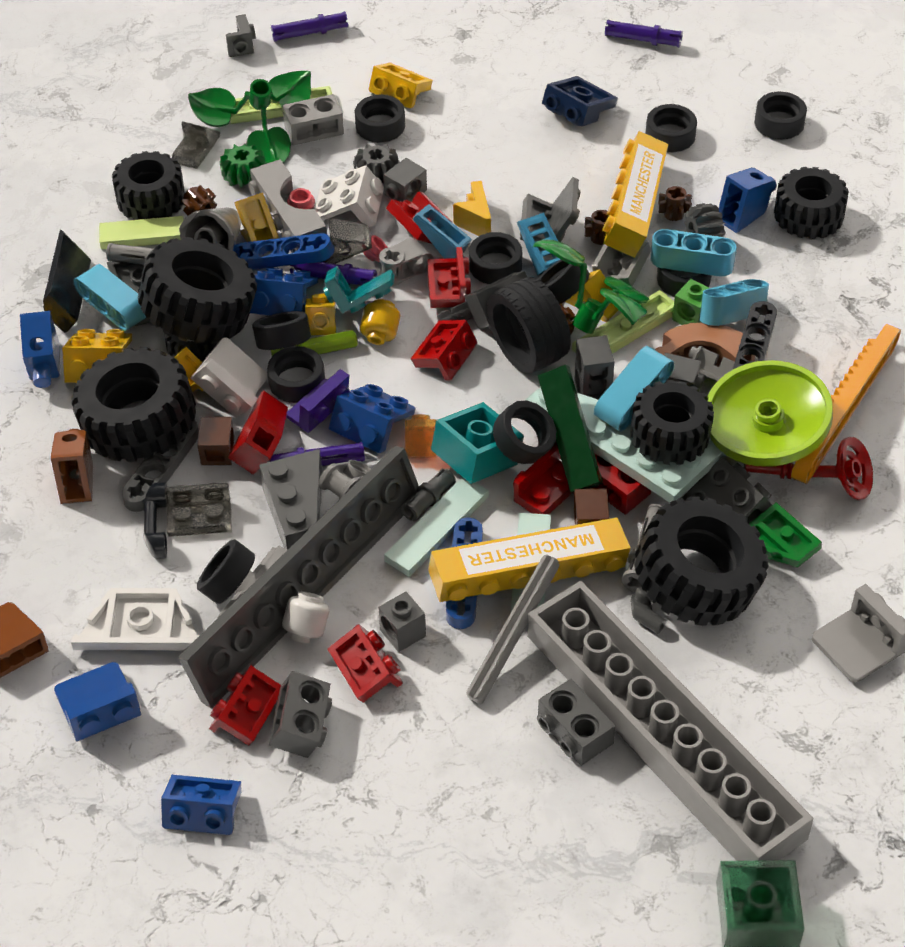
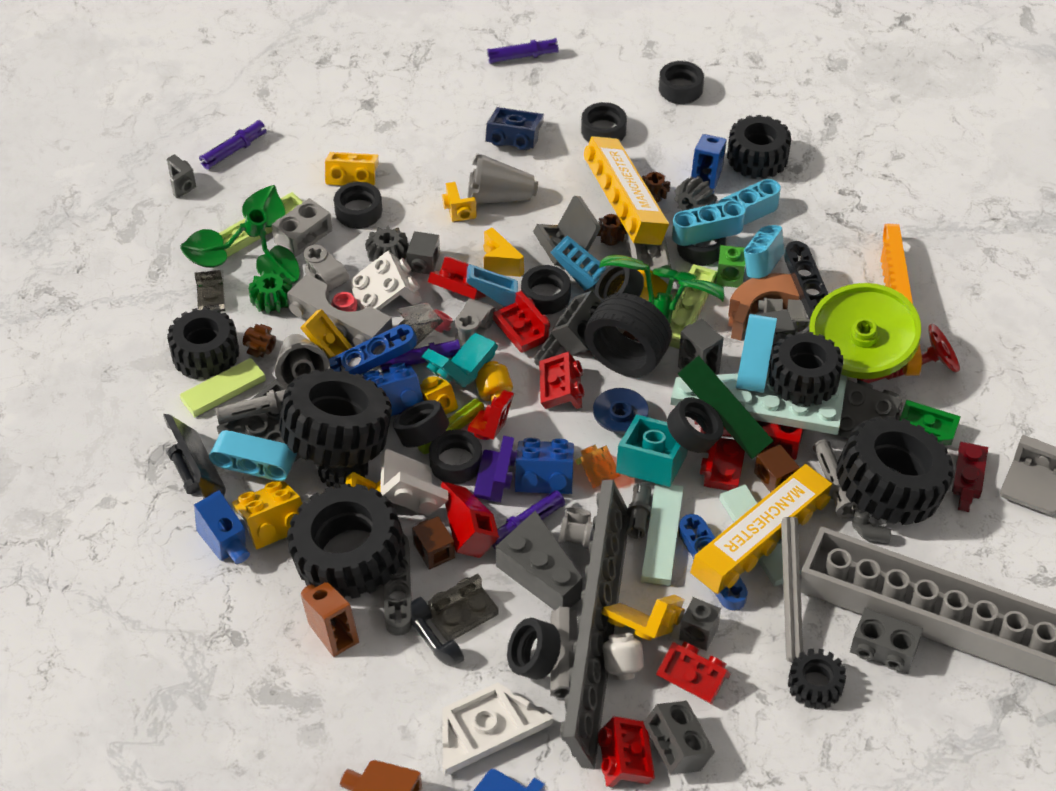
camera: 30 degrees left, 0 degrees up
(304, 162) = (324, 267): none -> light grey piece
(351, 350) = (490, 422): none -> red bracket
(353, 591) = (664, 616): none -> yellow bracket
(470, 153) = (458, 208): none -> yellow bracket
(479, 742) = (816, 663): none -> black tyre
(480, 388) = (618, 402): none -> dark blue dish
(521, 143) = (499, 182): none -> light grey cone
(765, 254) = (758, 199): none -> medium azure beam
(794, 604) = (969, 473): none -> dark red hinge

